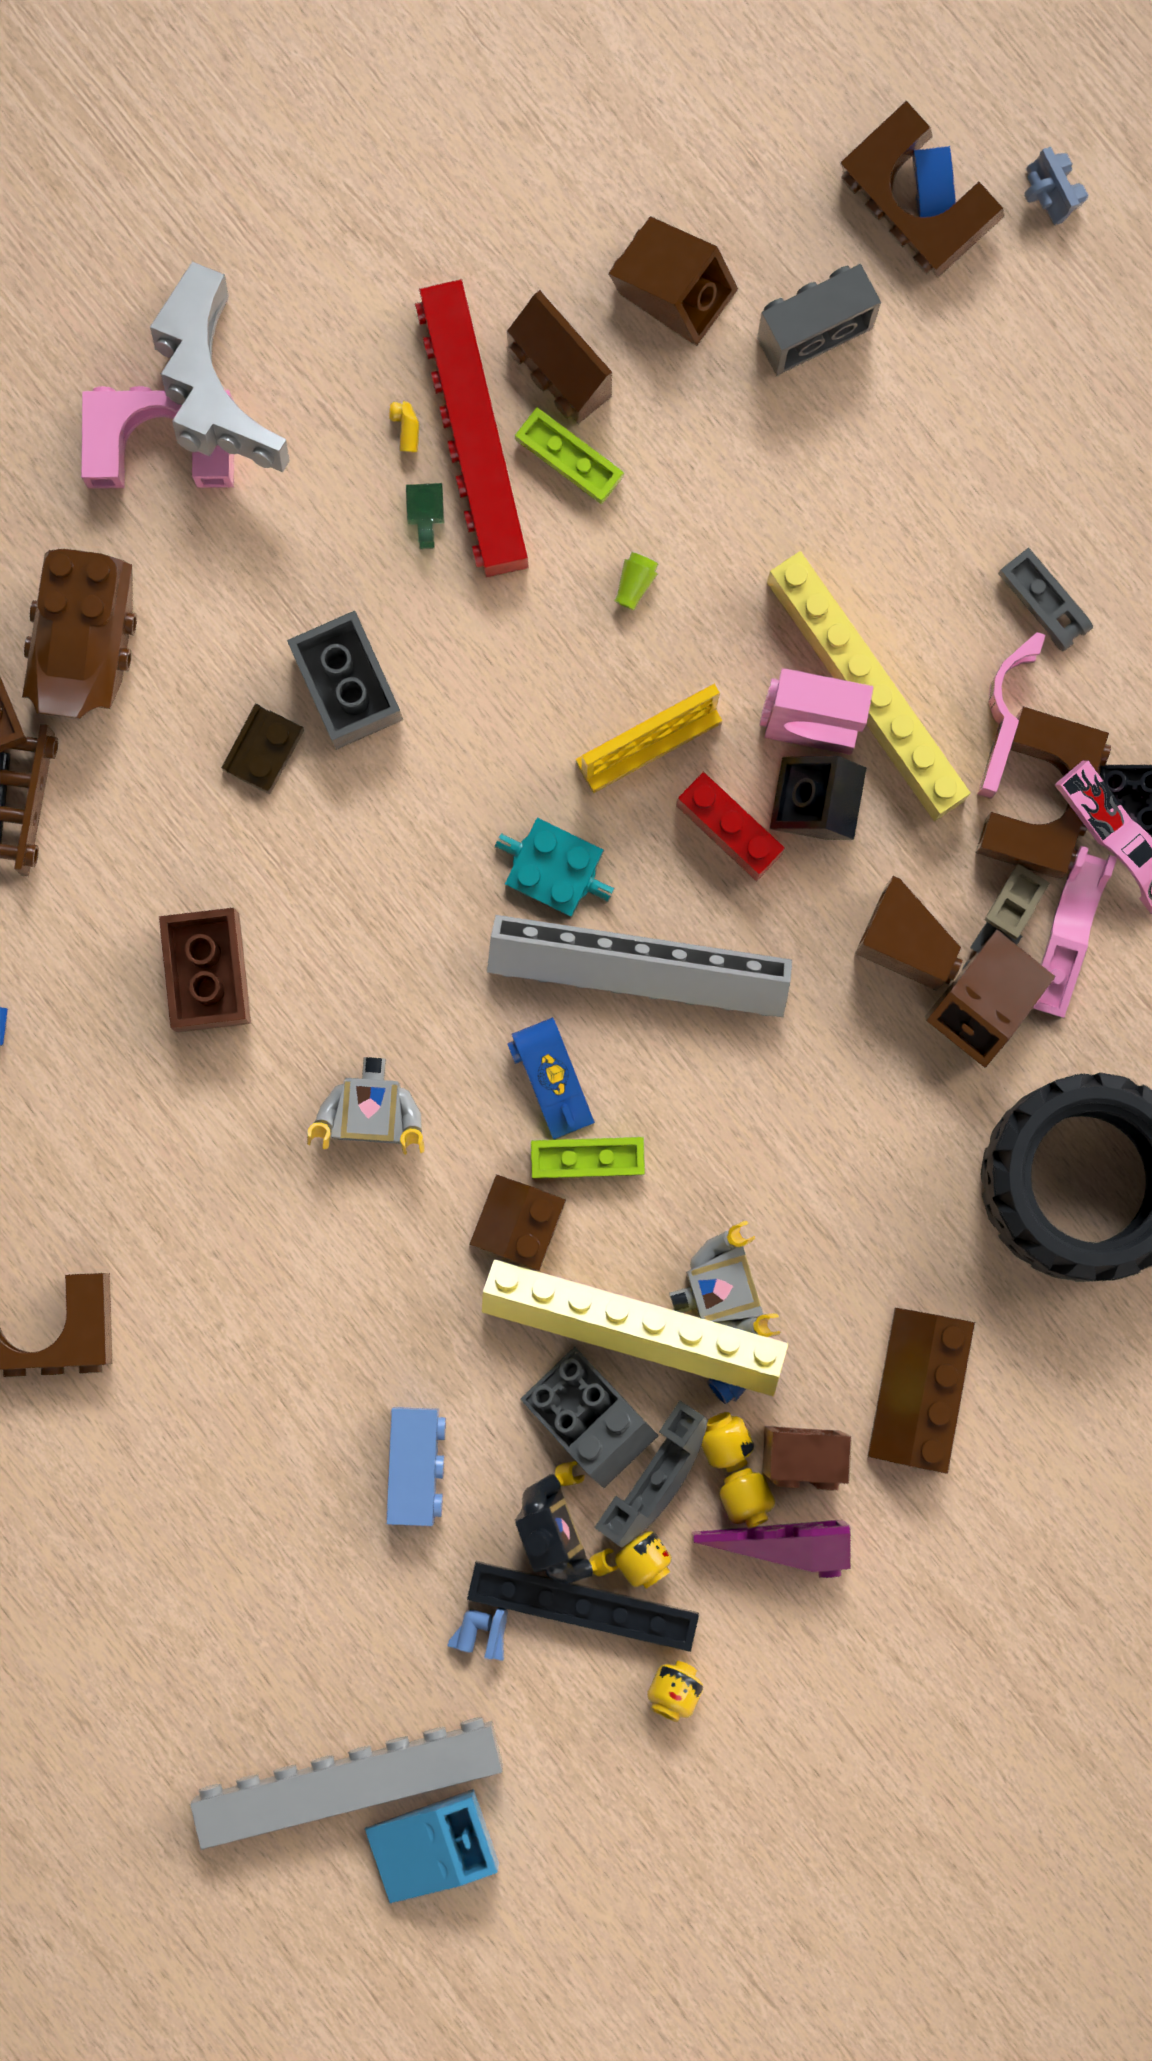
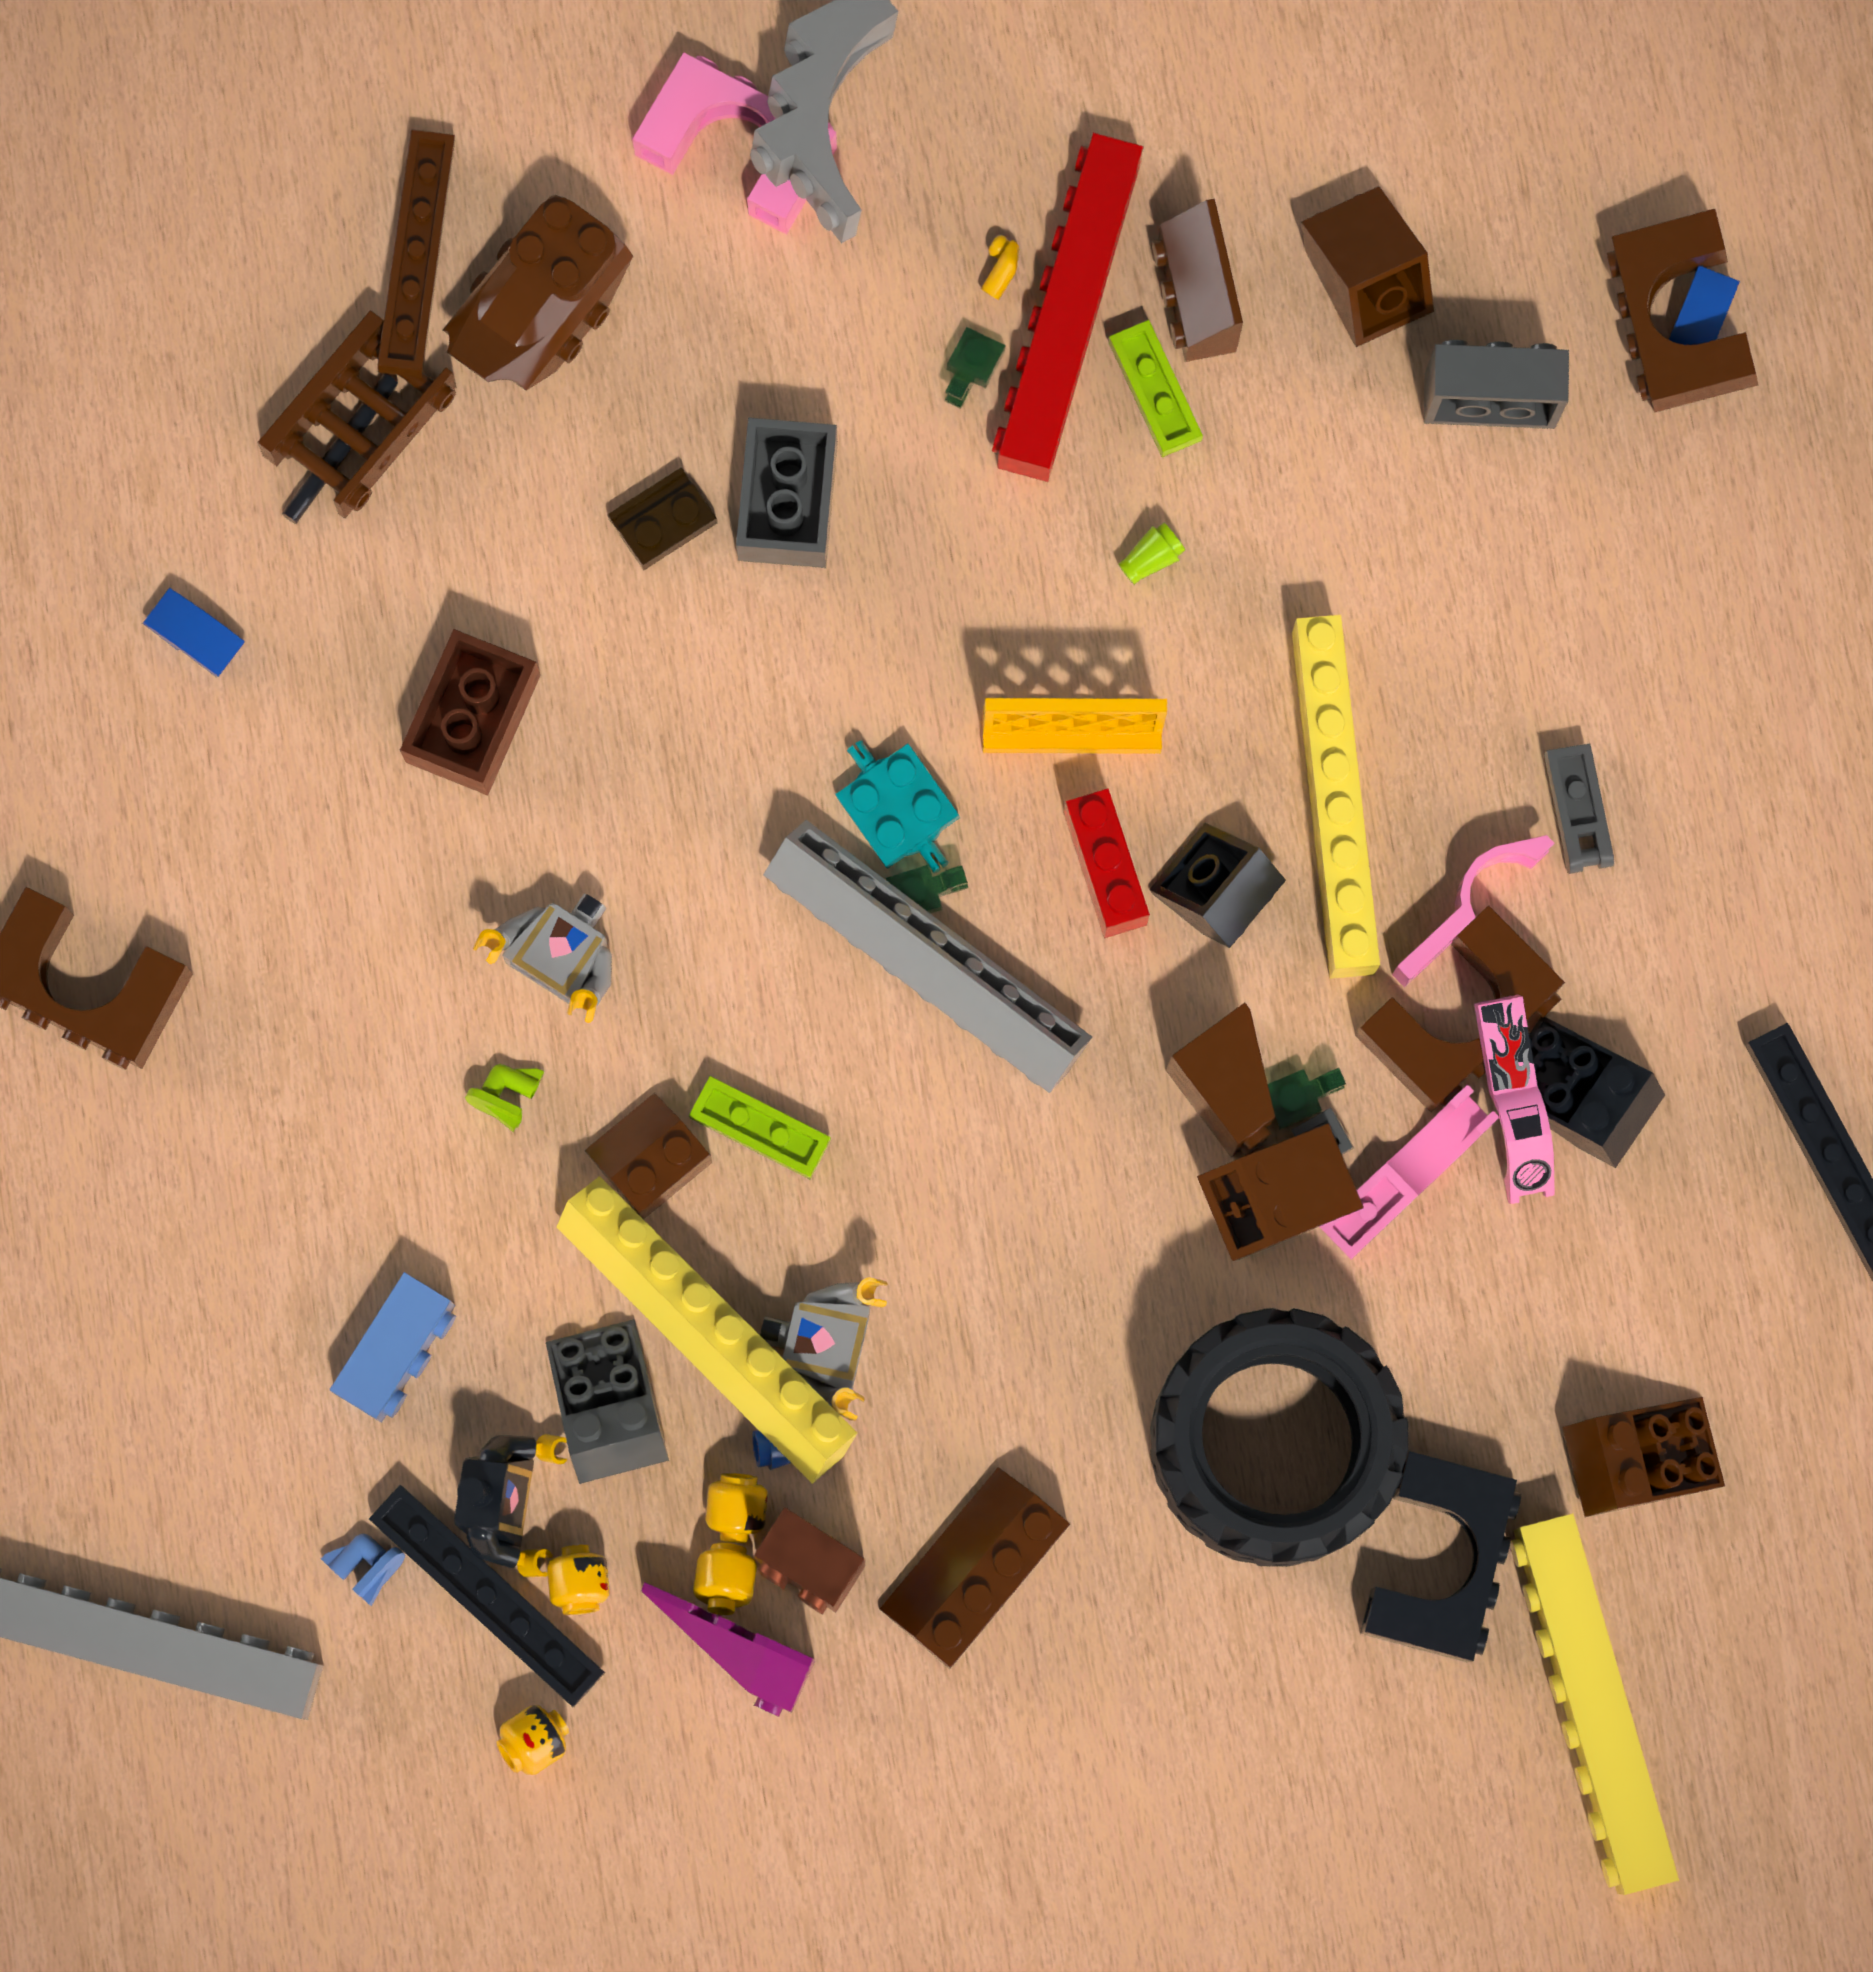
camera: 25 degrees right, 5 degrees down
(378, 1224) = (501, 1076): none -> lime piece
(433, 1848) = (184, 1760): dark azure slope -> none
(551, 1077) = (769, 1022): blue door -> none
(607, 917) = (925, 889): none -> clear green plate
(660, 1480) = (644, 1508): dark grey slope -> none
(815, 711) = (1258, 786): bright pink arch -> none
(961, 919) = (1297, 1098): none -> clear green plate
(1016, 901) = (1368, 1108): dark tan slope -> none
(1051, 186) = (1826, 381): sand blue hips -> none

